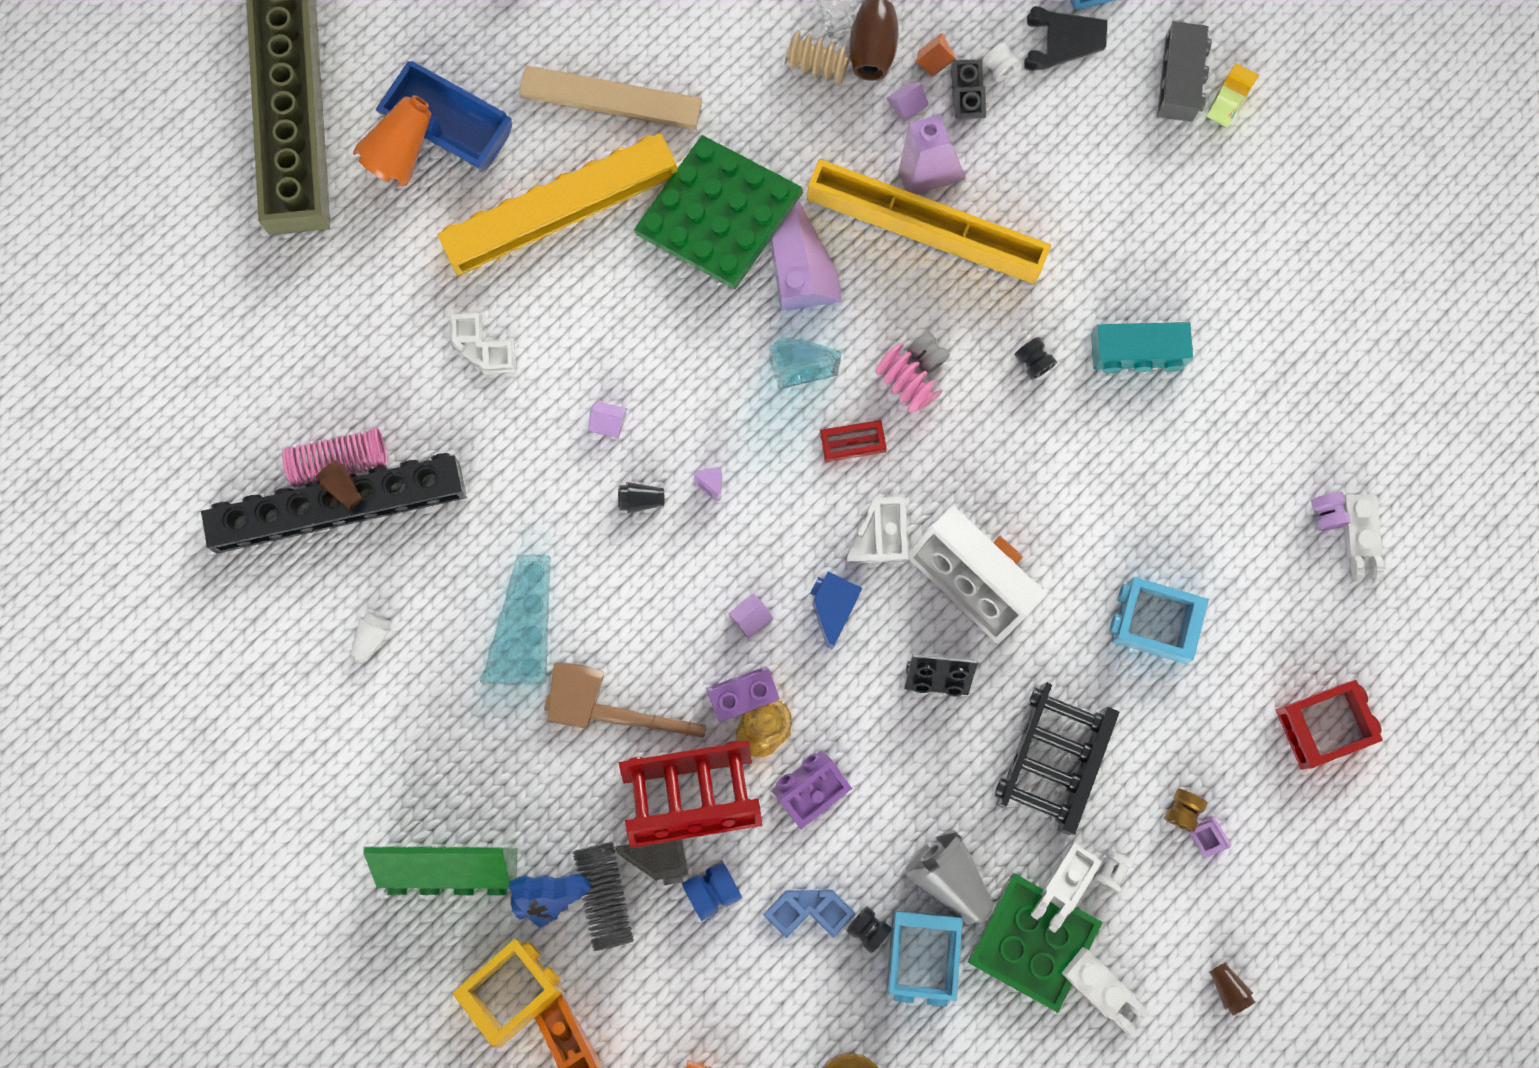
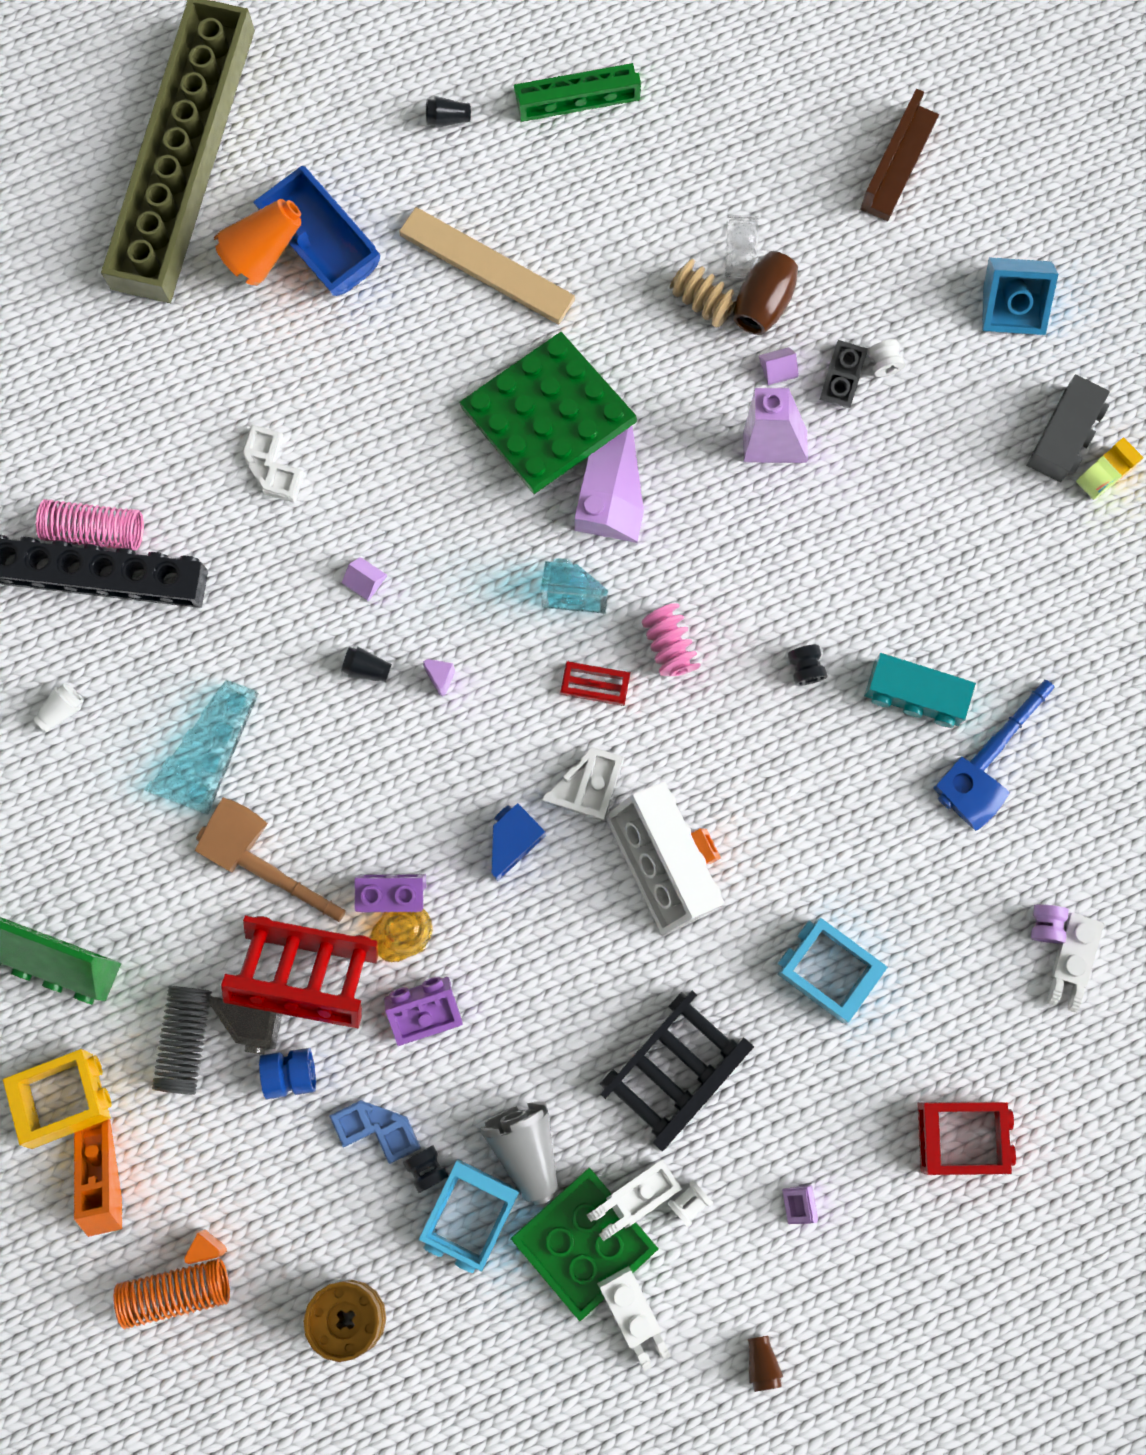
camera: 25 degrees right, 0 degrees up
(339, 484) = (80, 551): reddish brown cone -> none
(545, 896) = (124, 1019): blue rock -> none
(557, 204) = (394, 352): yellow brick -> none
(751, 616) = (429, 820): lavender slope -> none
(927, 221) = (750, 492): yellow brick -> none
(928, 353) = (701, 622): light grey wheel -> none
(935, 55) = (822, 329): orange slope -> none
(940, 674) = (590, 945): black hinge -> none
(1067, 38) = (964, 355): black flag -> none
(1185, 810) = (779, 1175): pearl gold wheel -> none
(1213, 416) = (966, 785): none -> blue piece

